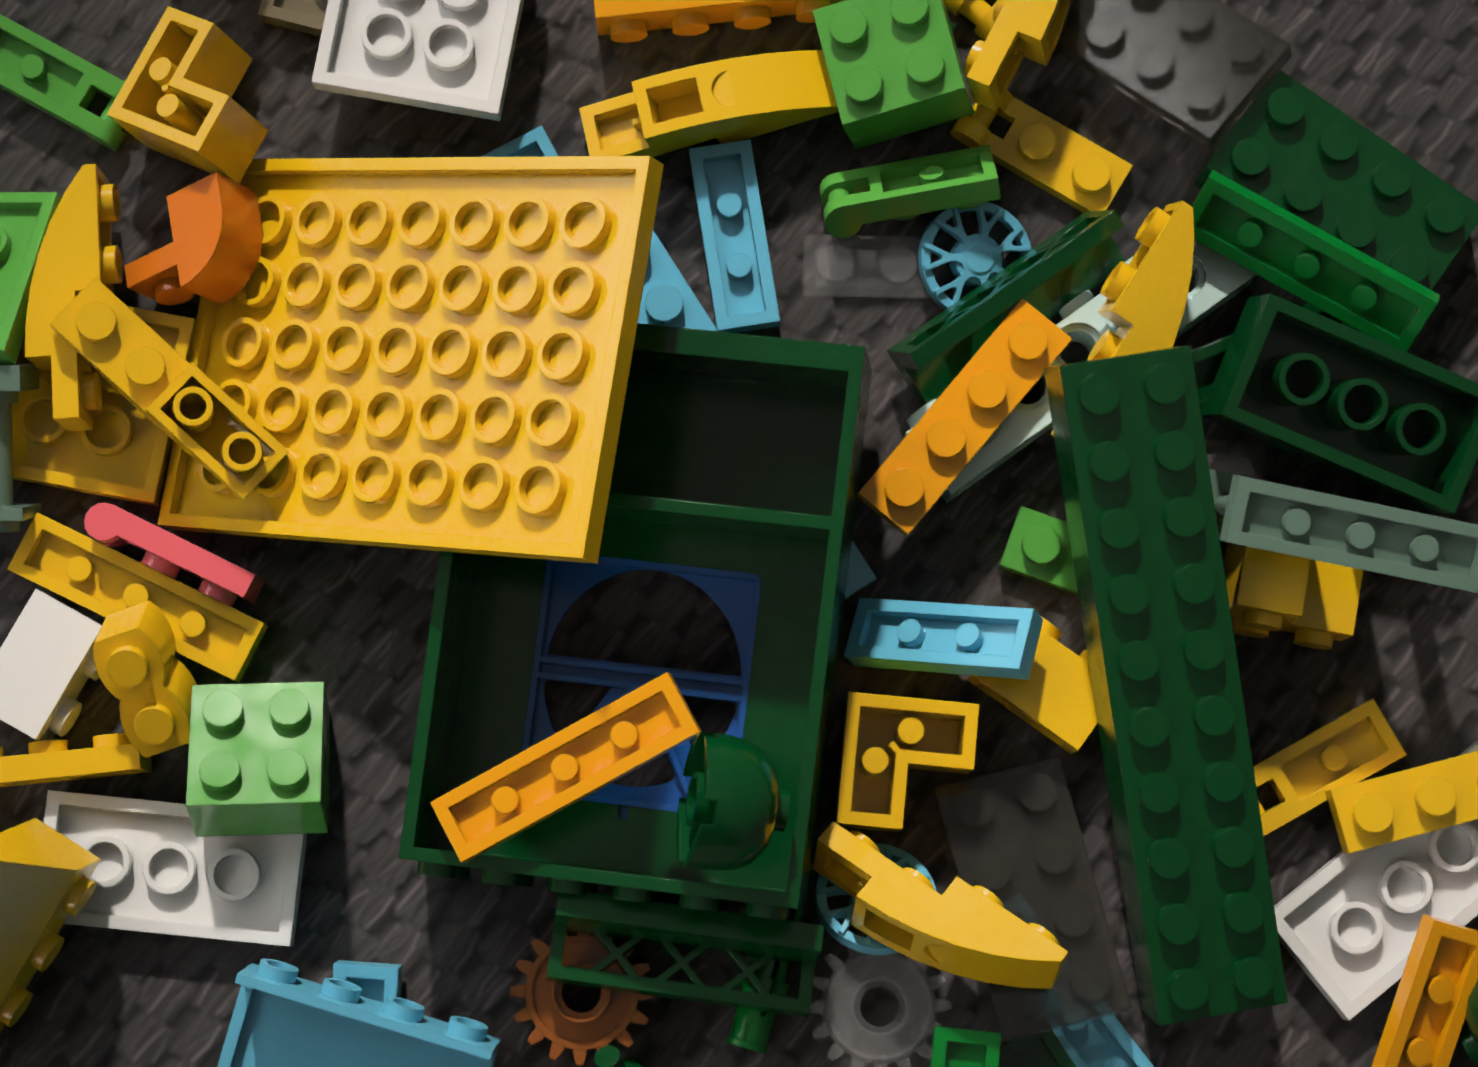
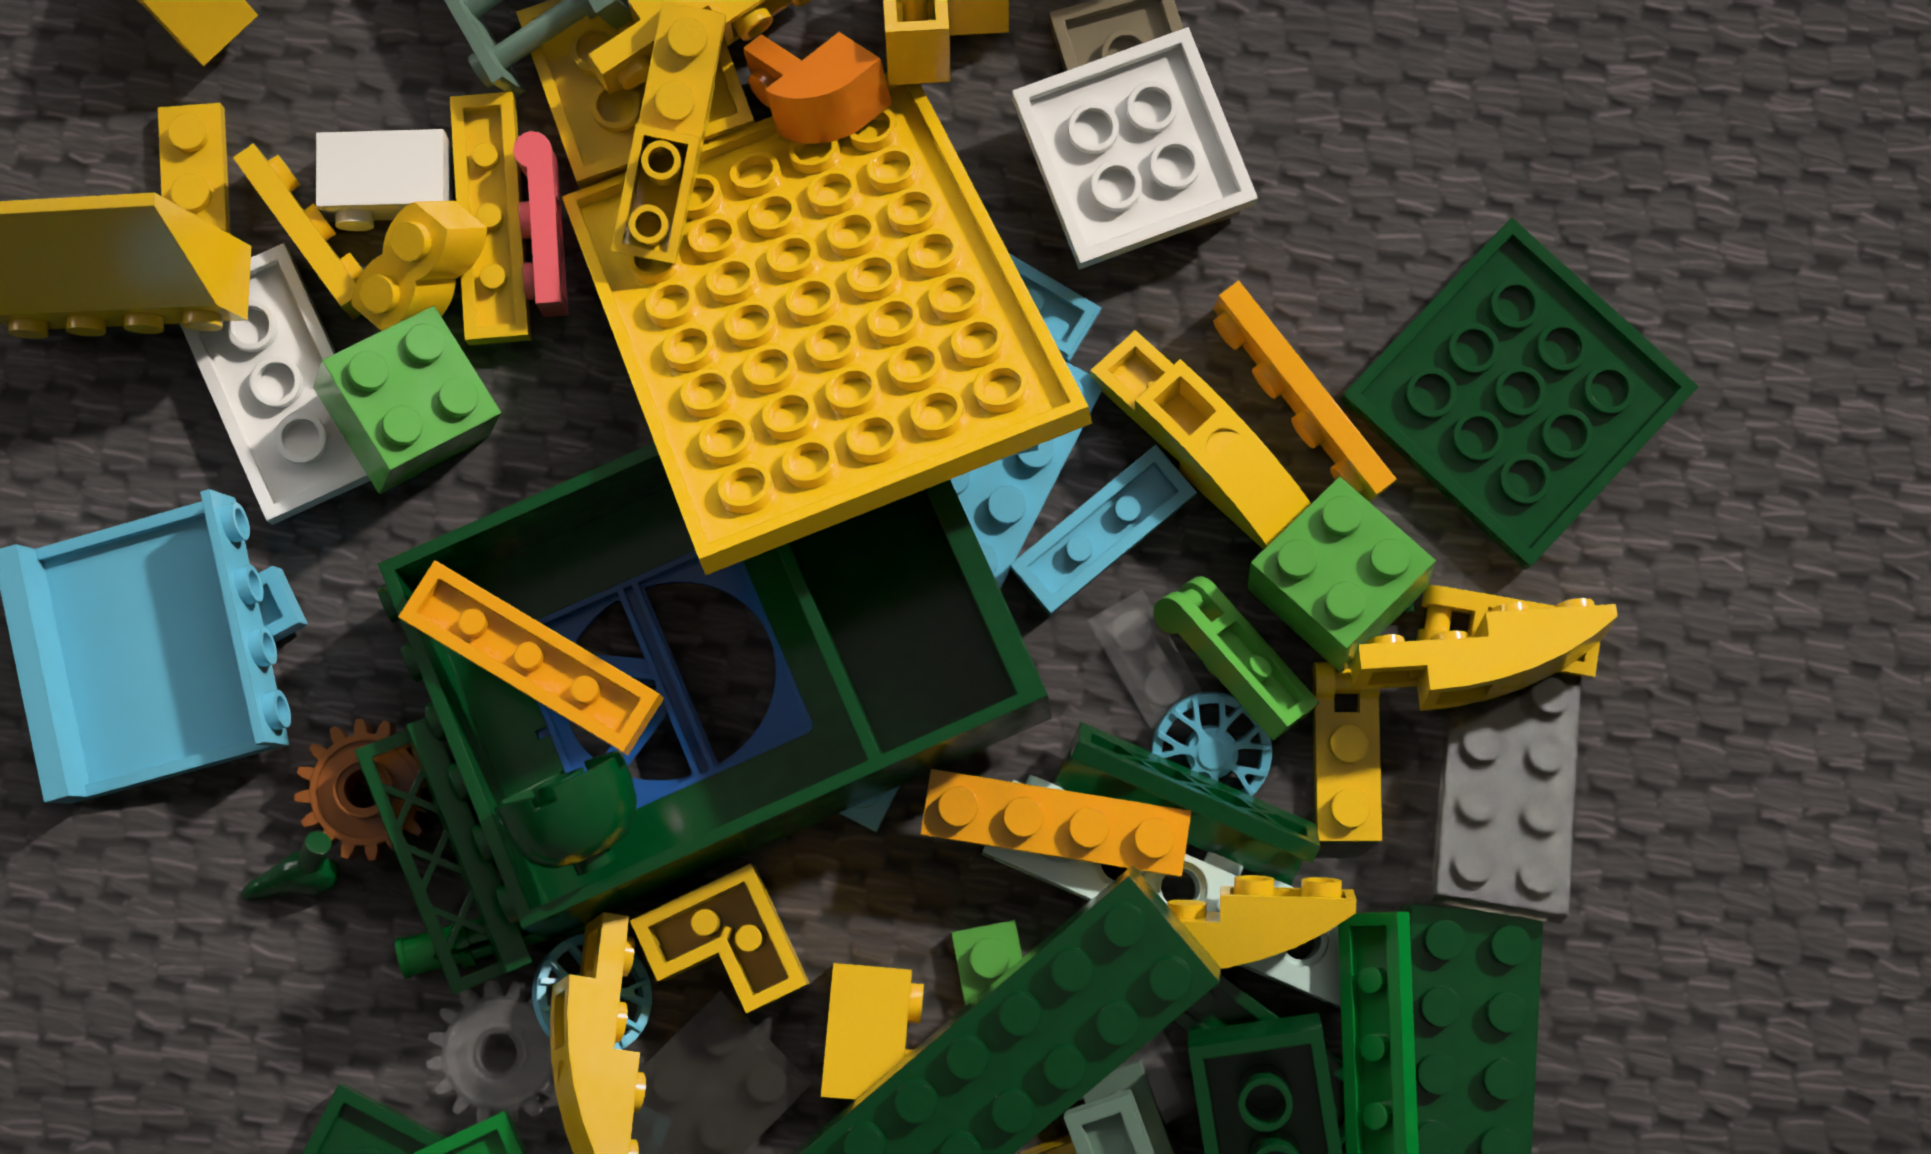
camera: 55 degrees right, 0 degrees up
(944, 638) = (851, 920): medium azure plate -> none

